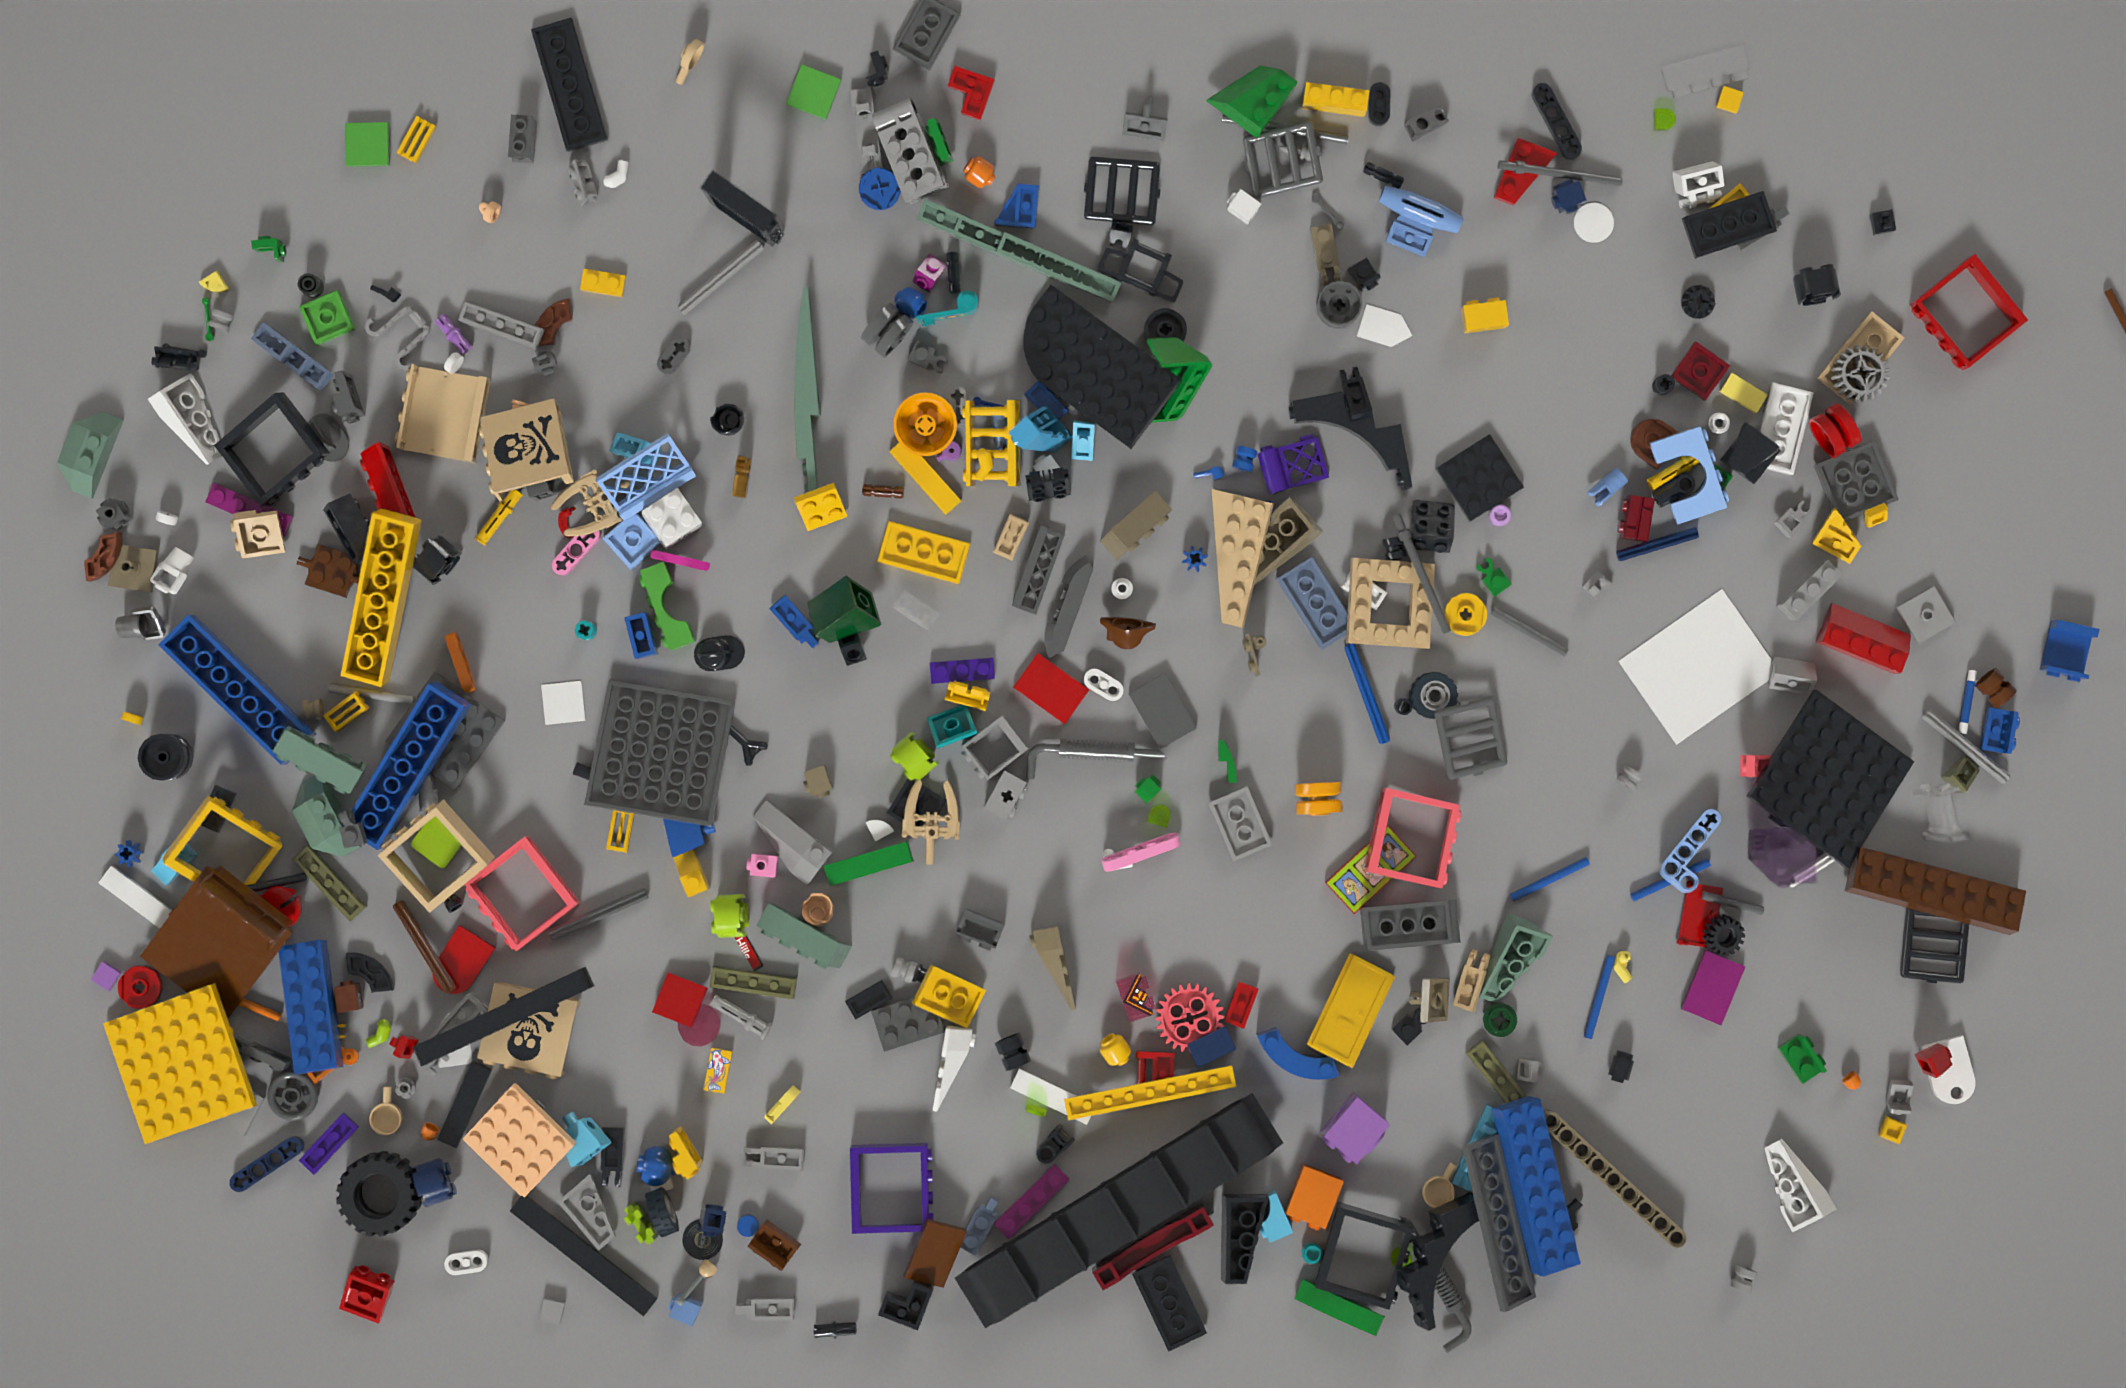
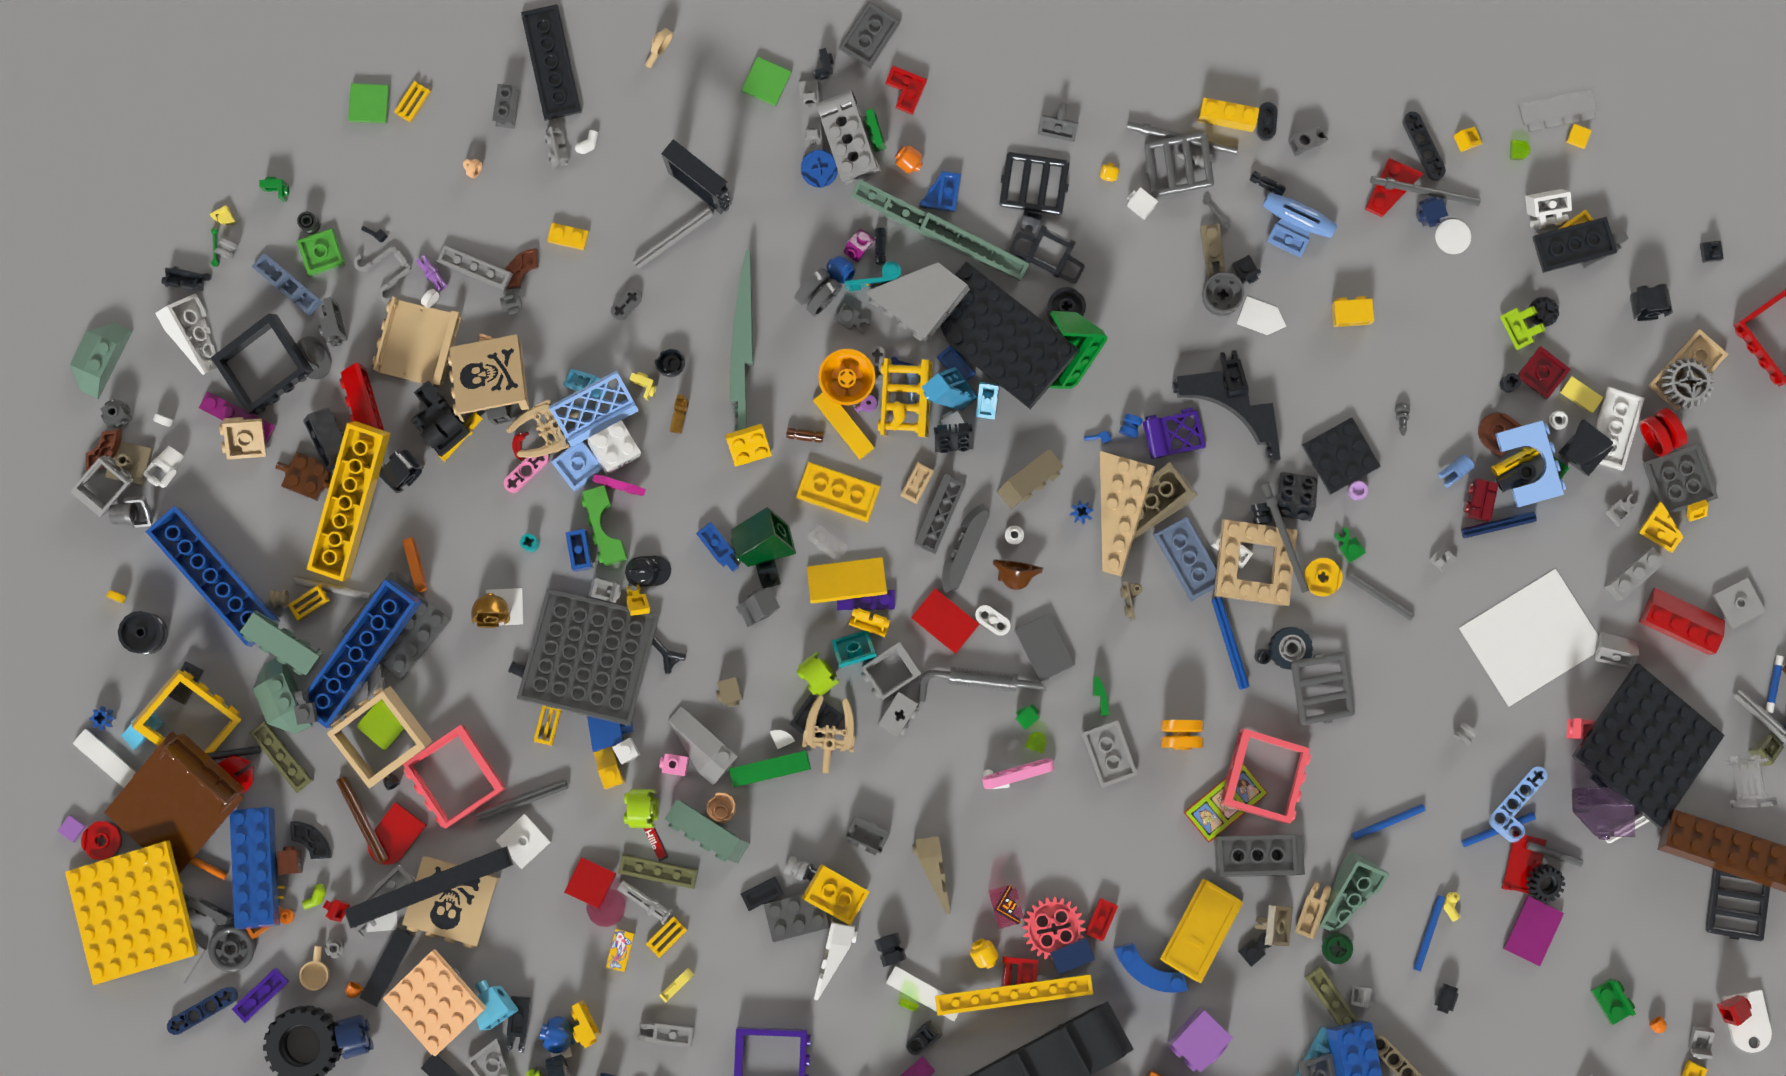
camera: 10 degrees right, 5 degrees down
(95, 613) = (89, 498): none -> light grey window
(472, 501) = (438, 421): none -> black plate
(547, 709) = (490, 611): none -> pearl gold cylinder
(603, 958) = (523, 841): none -> white plate
(673, 678) = (605, 590): none -> light grey bracket
(697, 440) = (642, 380): none -> light yellow bracket
(709, 689) = (637, 603): none -> yellow plate
(709, 854) = (626, 751): none -> white brick
(755, 1067) = (654, 948): none -> yellow tile
(843, 686) = (759, 606): none -> dark grey hinge
(939, 650) = (846, 580): none -> yellow tile
(1002, 331) = (920, 299): none -> light grey slope
(1205, 172) = (1109, 172): none -> yellow piece
(1255, 98) = (1157, 109): green wedge -> none
(1545, 423) = (1402, 415): none -> dark grey bar
(1605, 110) = (1467, 139): none -> yellow slope
(1670, 323) = (1518, 329): none -> lime plate

